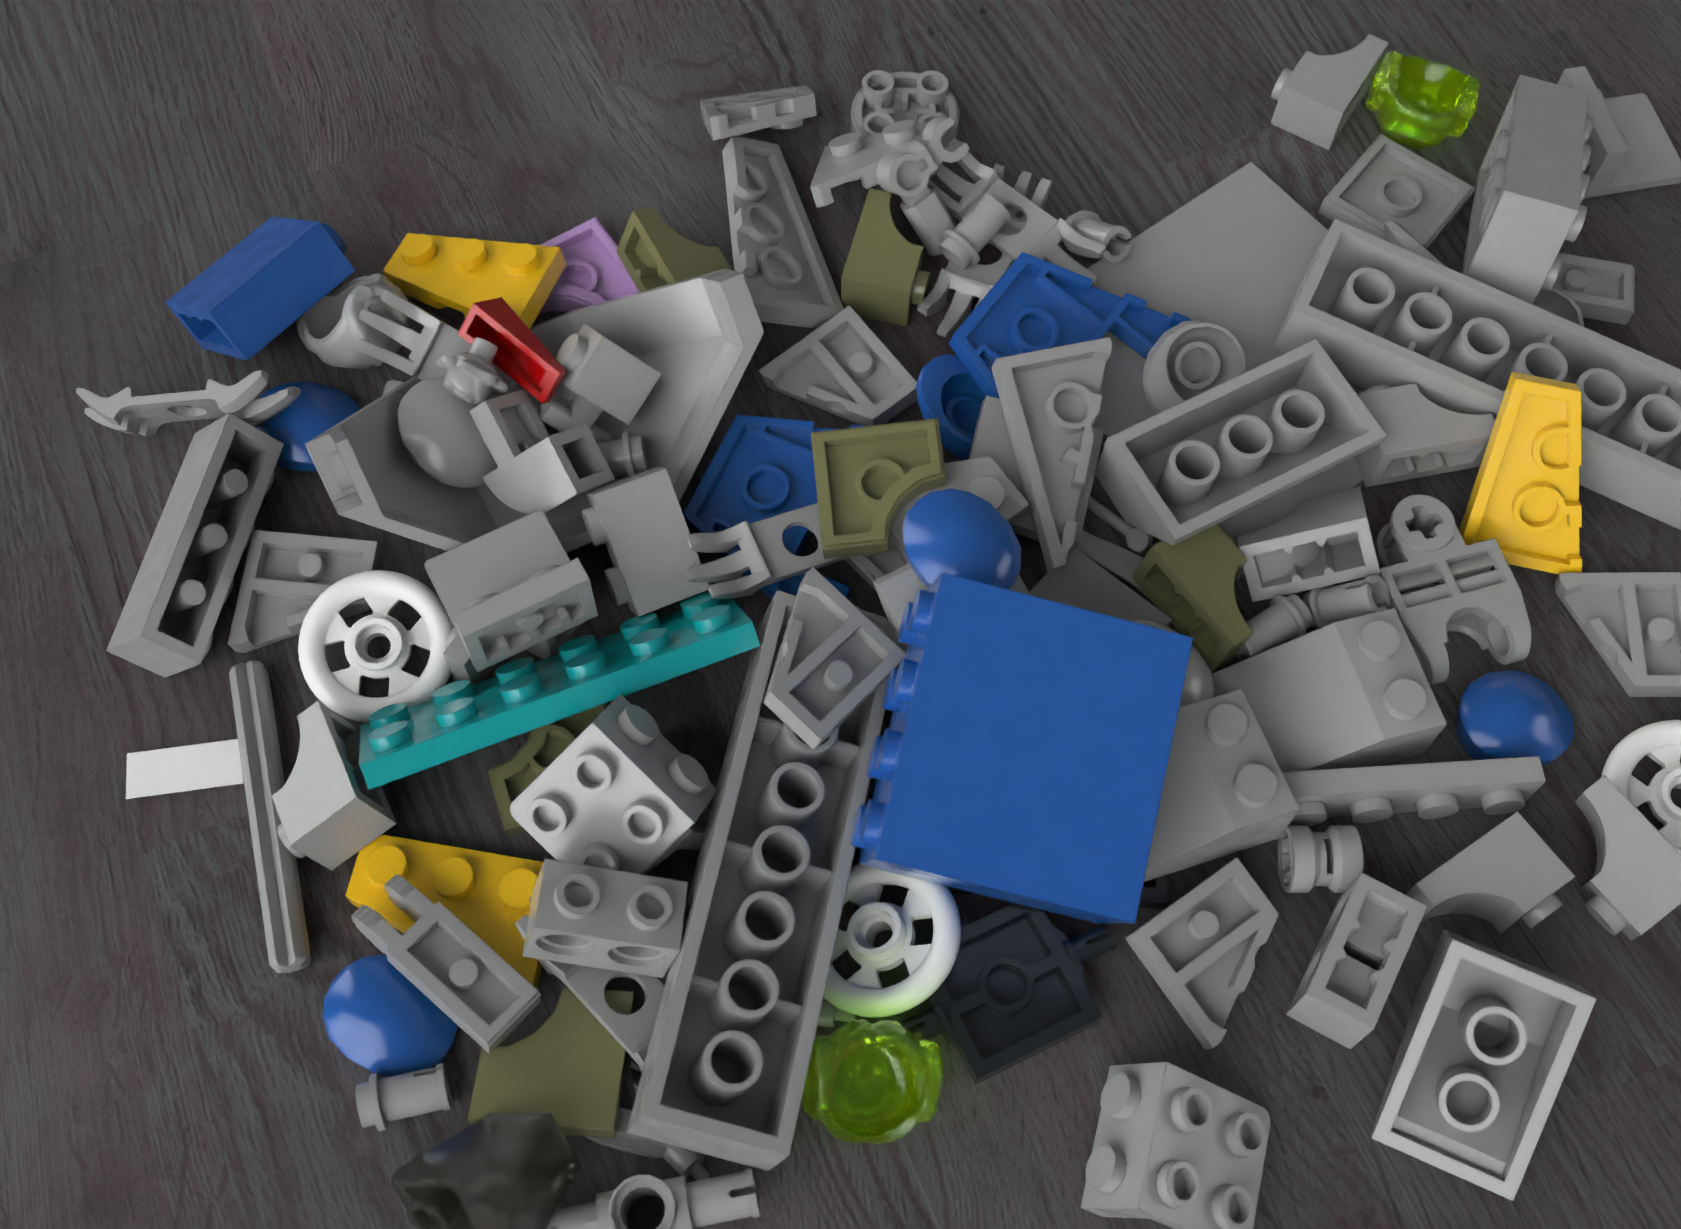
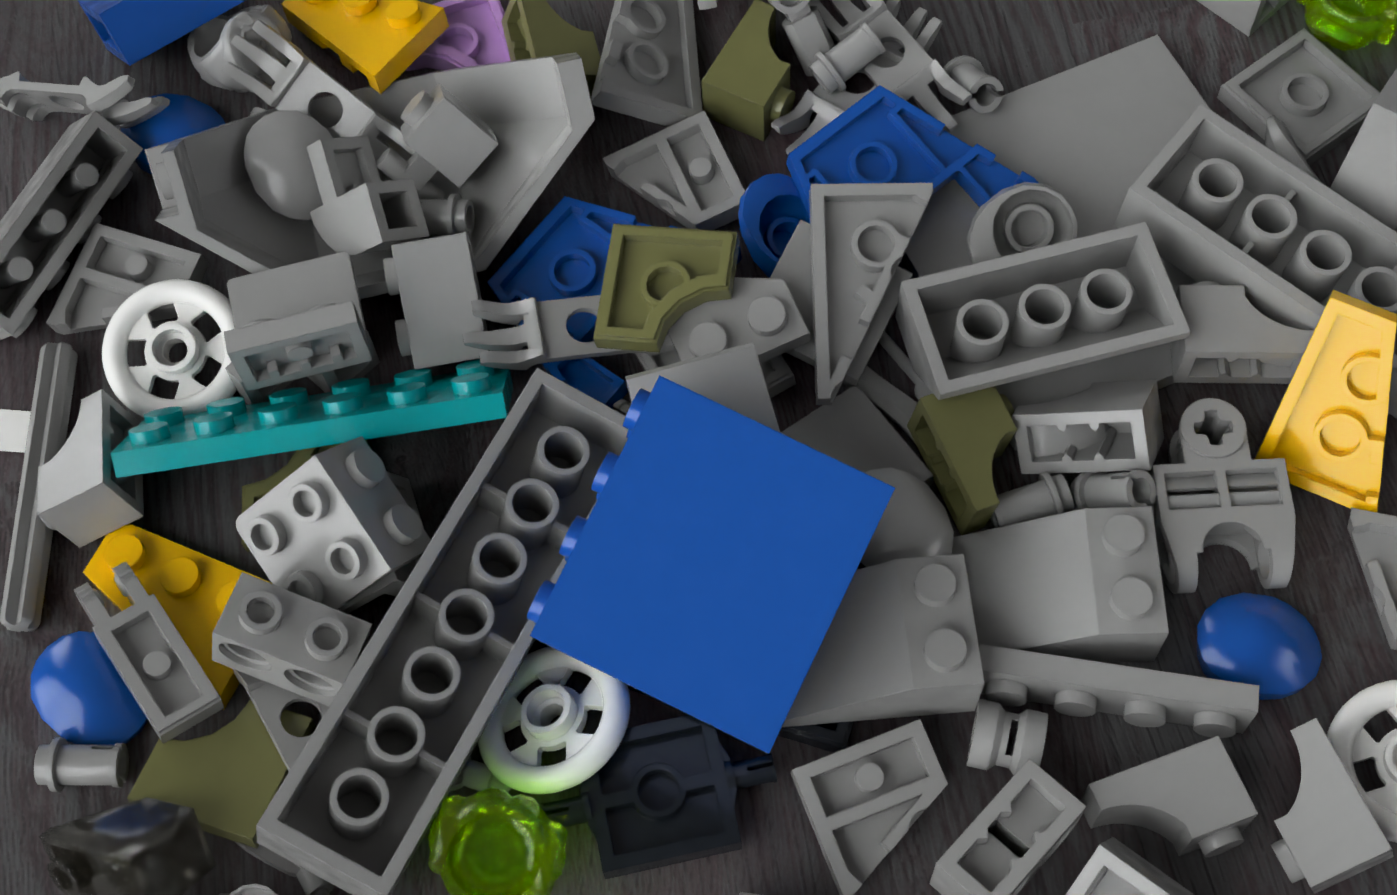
camera: 20 degrees right, 0 degrees up
(472, 374) = (319, 112): light grey plant -> none
(518, 351) = (362, 90): red piece -> none
(827, 661) = (556, 444): light grey wing -> none
(960, 537) = (715, 353): blue hat -> none

